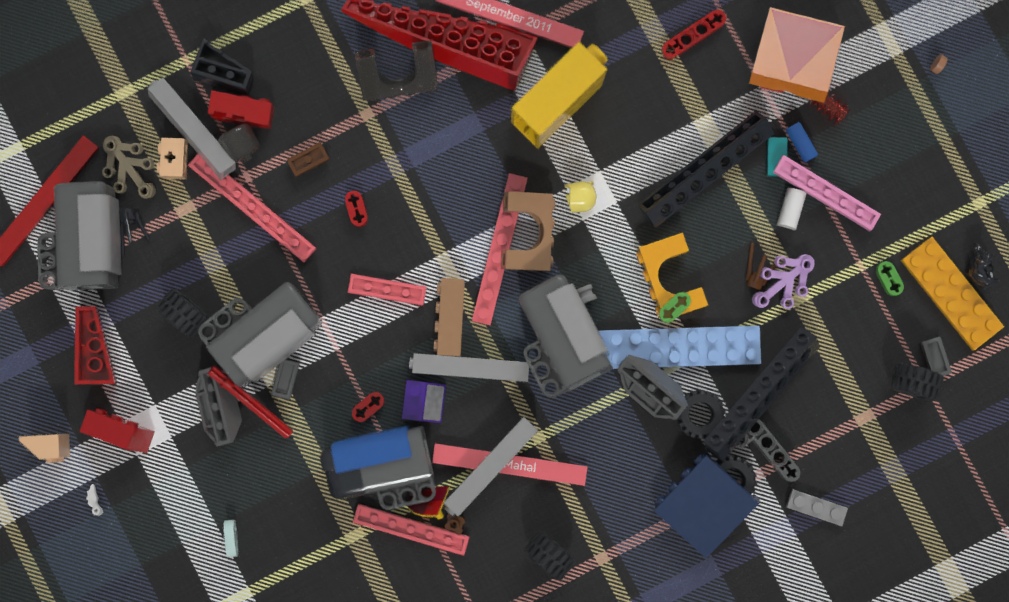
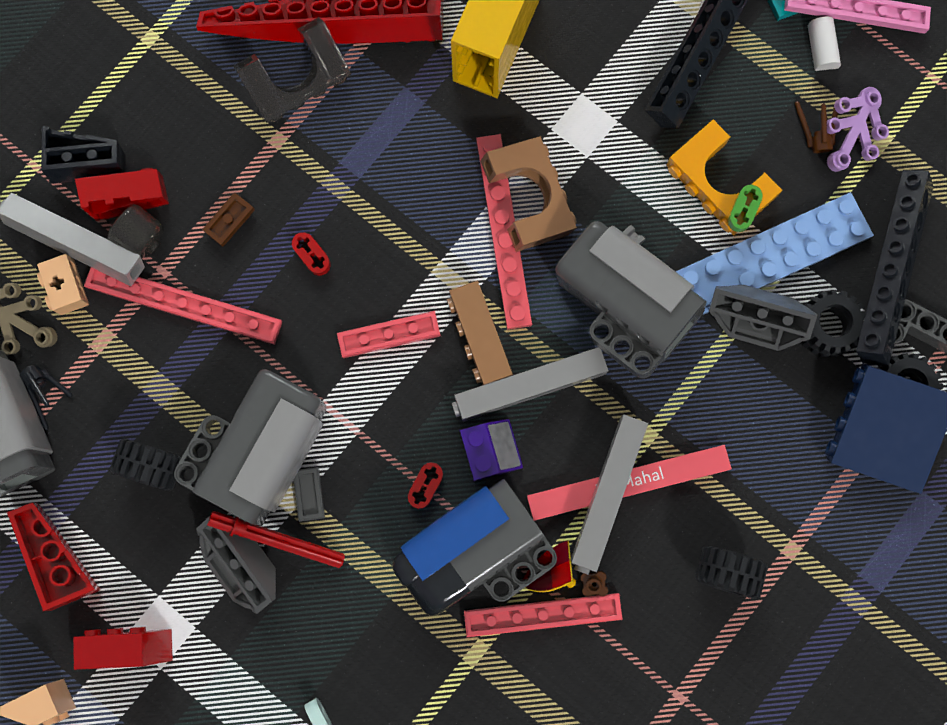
camera: 20 degrees left, 5 degrees down
(581, 196) = (576, 126): light yellow helmet -> none

